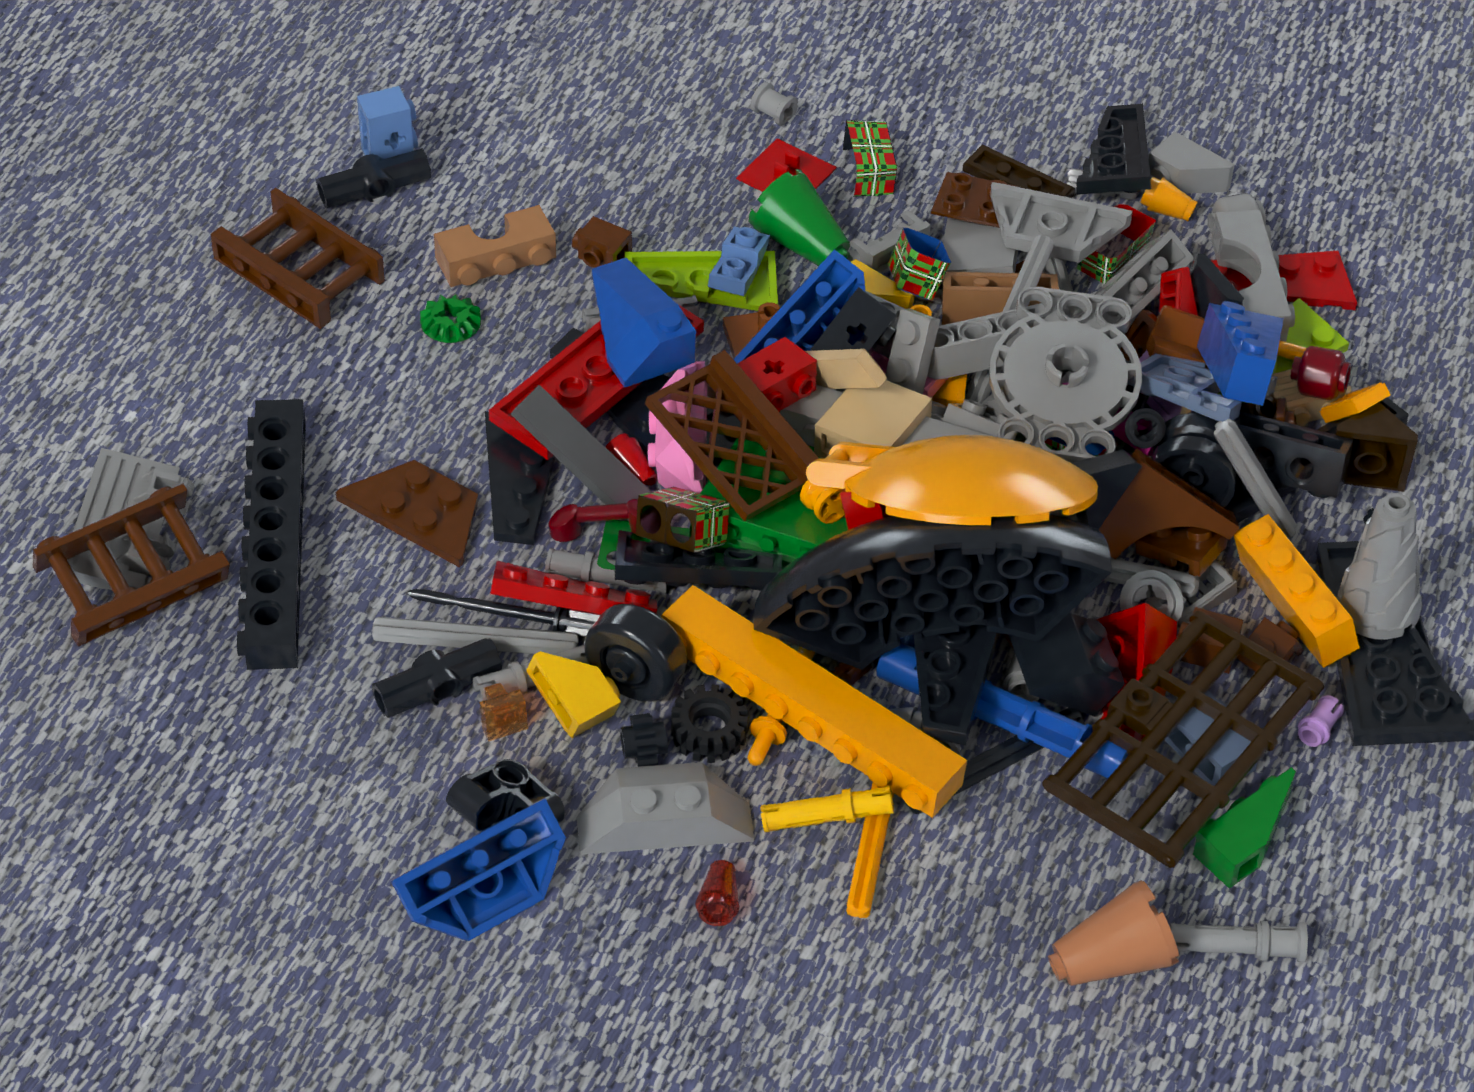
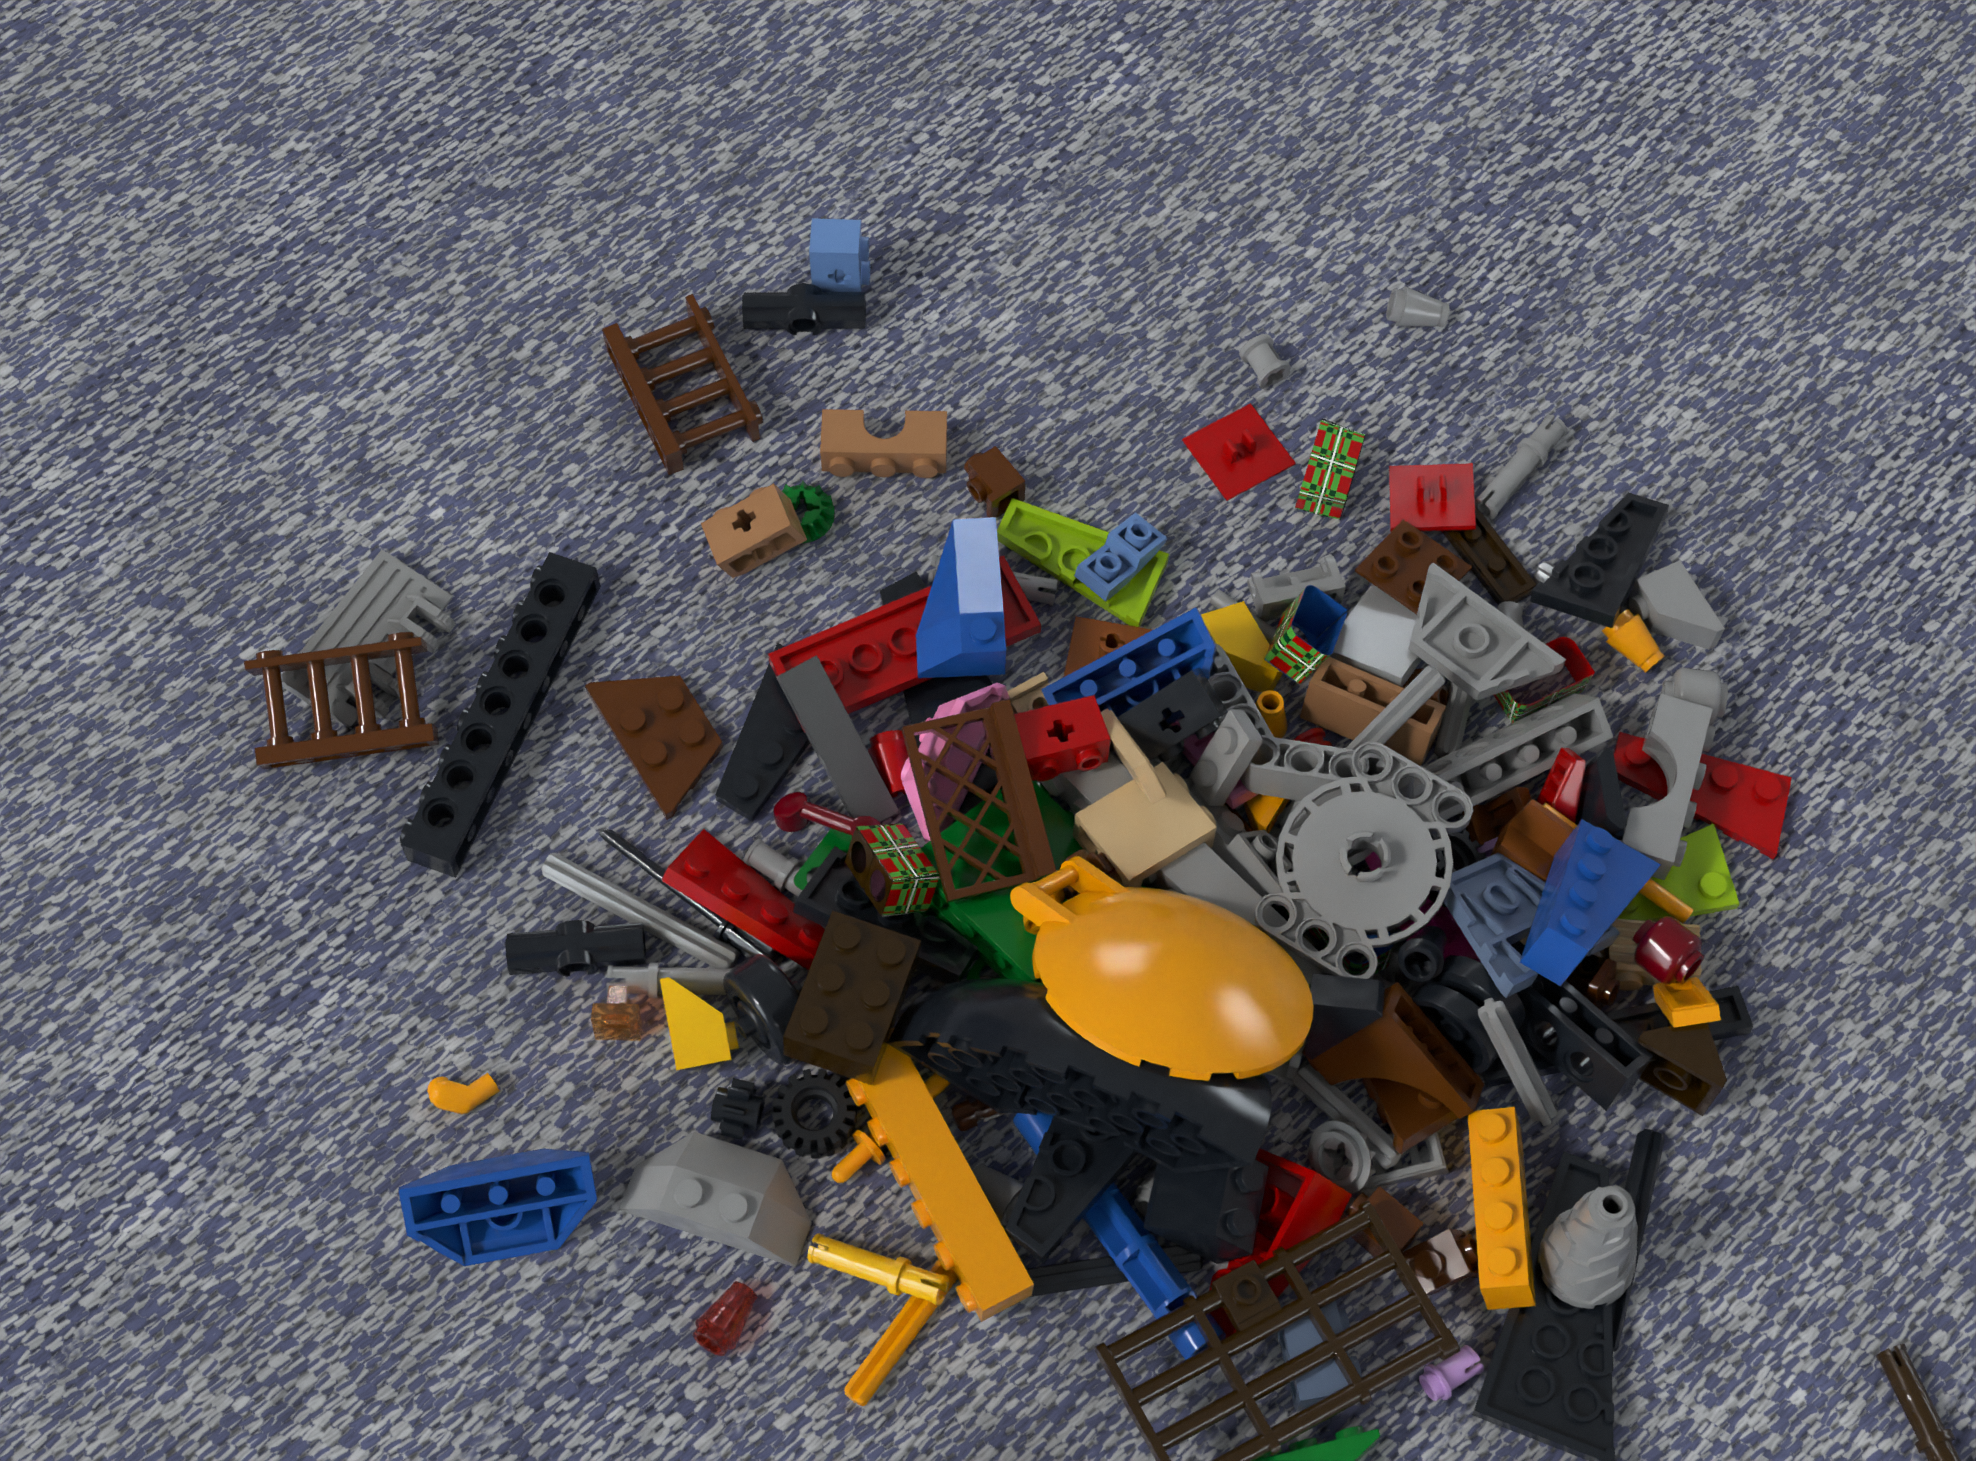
camera: 25 degrees right, 15 degrees up
(394, 819) = (460, 1097): none -> light orange arm
(423, 335) = (753, 531): none -> medium nougat brick
(499, 793) = (544, 1119): black piece -> none
(710, 602) = (851, 997): none -> dark brown brick
(799, 219) = (1212, 530): green cone -> none
(872, 37) = (1414, 308): none -> light grey cone
(959, 152) = (1433, 496): none -> red piece
(1017, 105) = (1531, 453): none -> light grey pin

